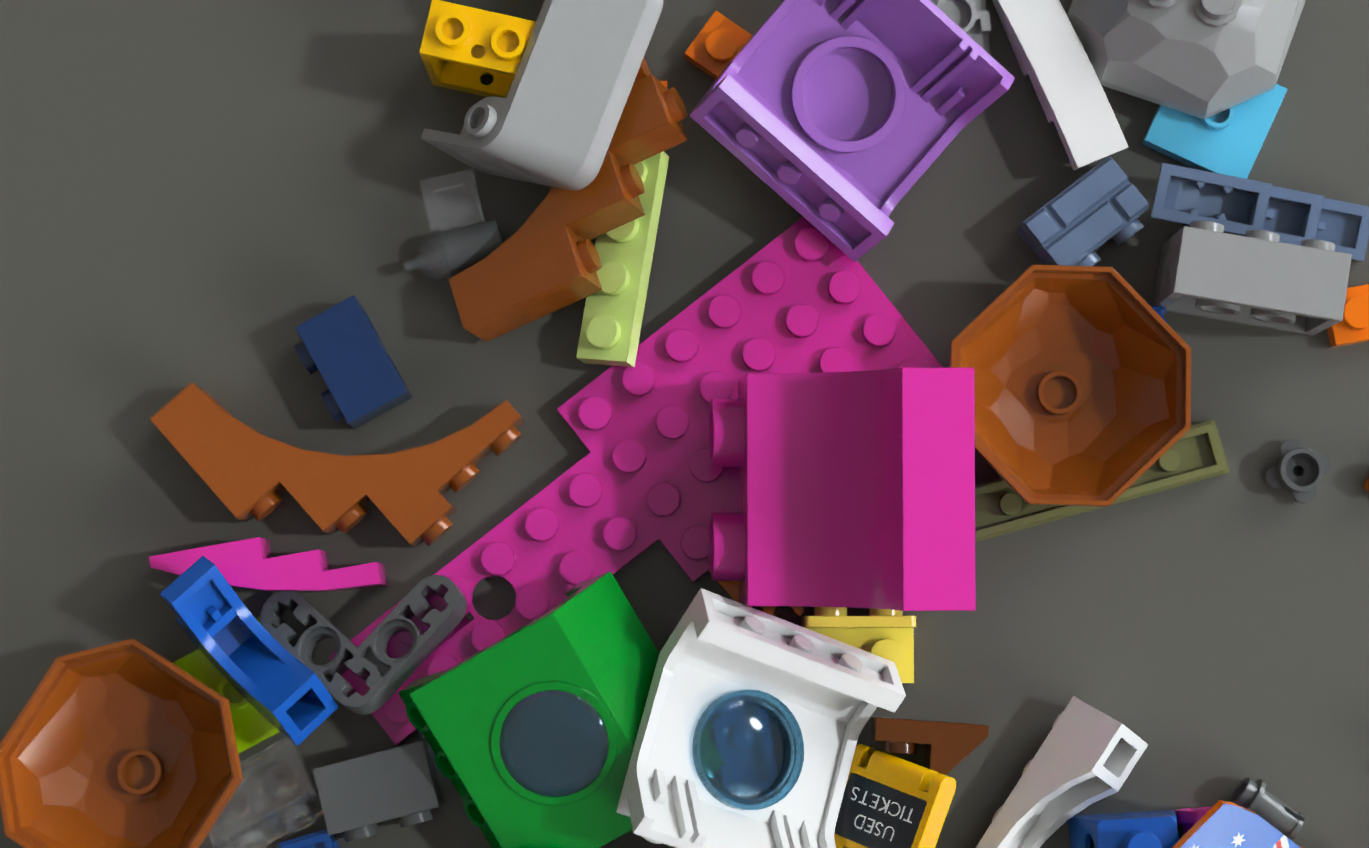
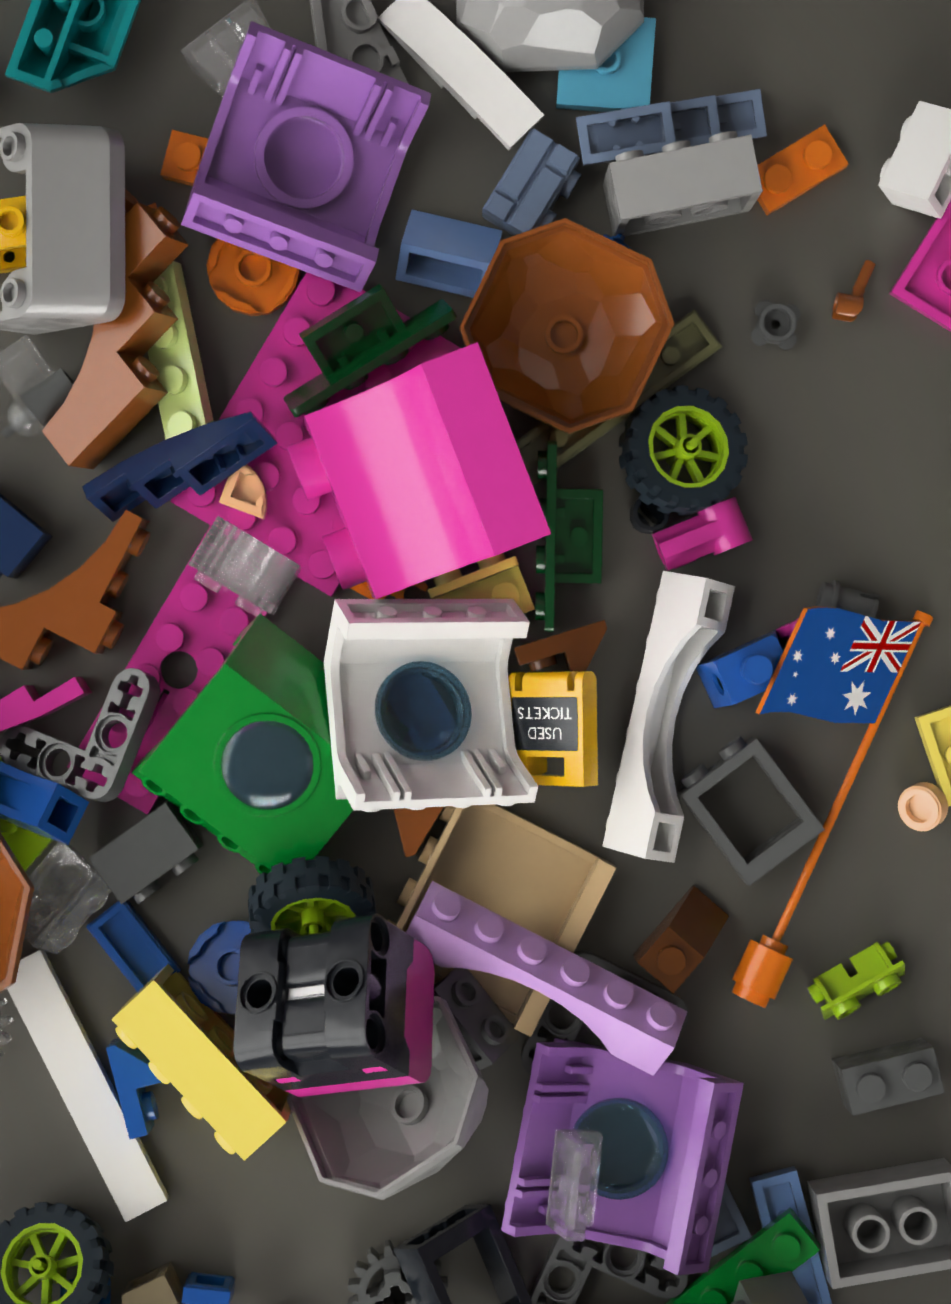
camera: 20 degrees left, 5 degrees up
(603, 372) = (190, 459): none -> dark blue slope
(612, 512) = (245, 567): none -> clear brick
(644, 429) = (245, 493): none -> light nougat tile
(737, 202) = (248, 280): none -> orange tile
(834, 314) = (360, 340): none -> dark green bracket
(964, 256) = (445, 253): none -> medium blue brick
(984, 637) = (575, 539): none -> dark green bracket
(1088, 624) = (640, 524): none -> black hinge
(1142, 672) = (711, 531): none -> dark pink piece
(1191, 555) = (714, 422): none -> black wheel

